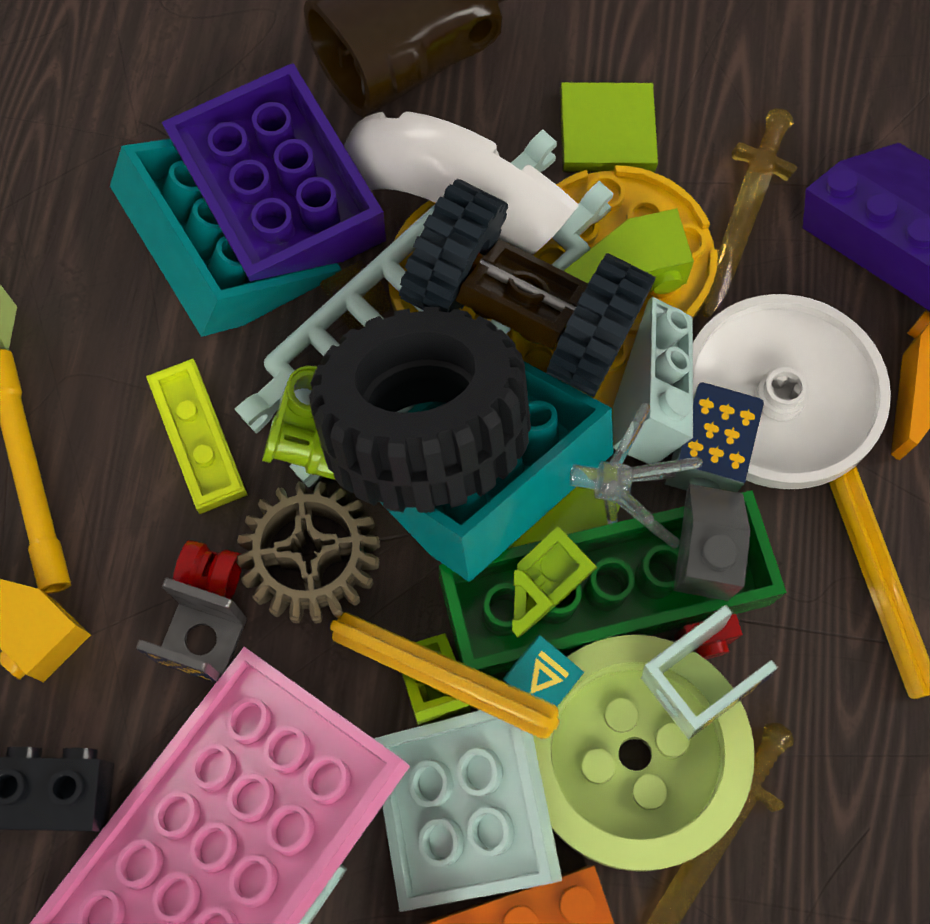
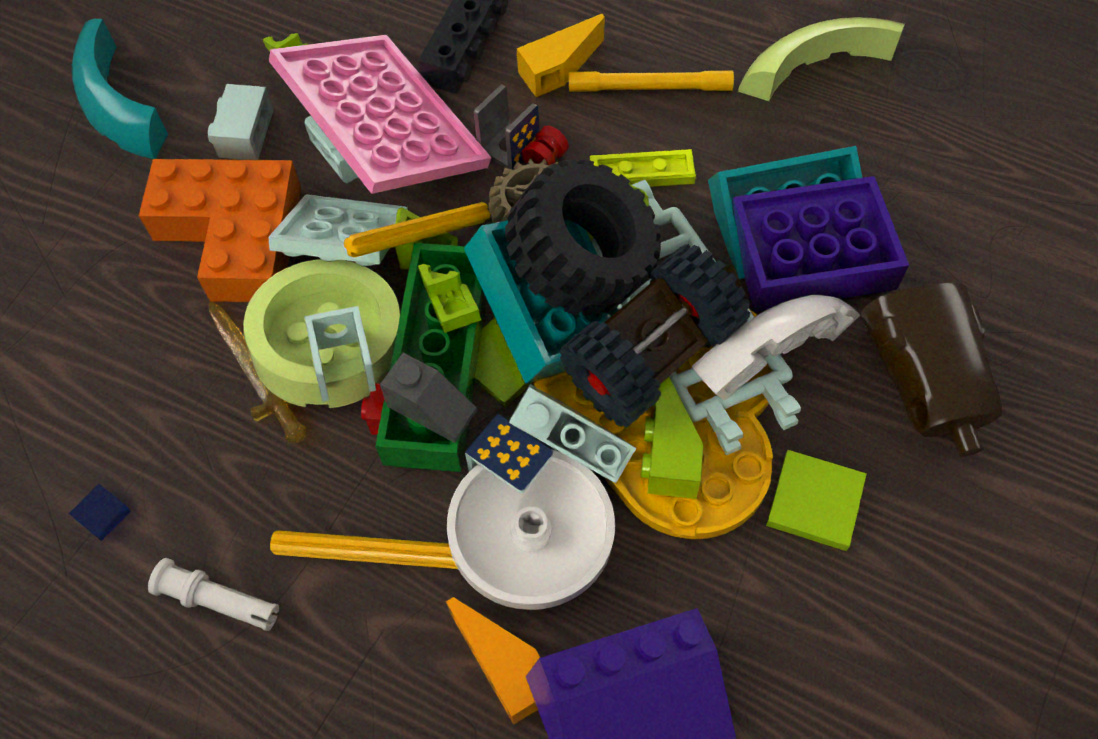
camera: 115 degrees right, 10 degrees down
(544, 672) = (390, 278): teal tile -> none
(614, 480) = (494, 355): clear plant -> none
(761, 167) = (714, 586): clear yellow sword -> none

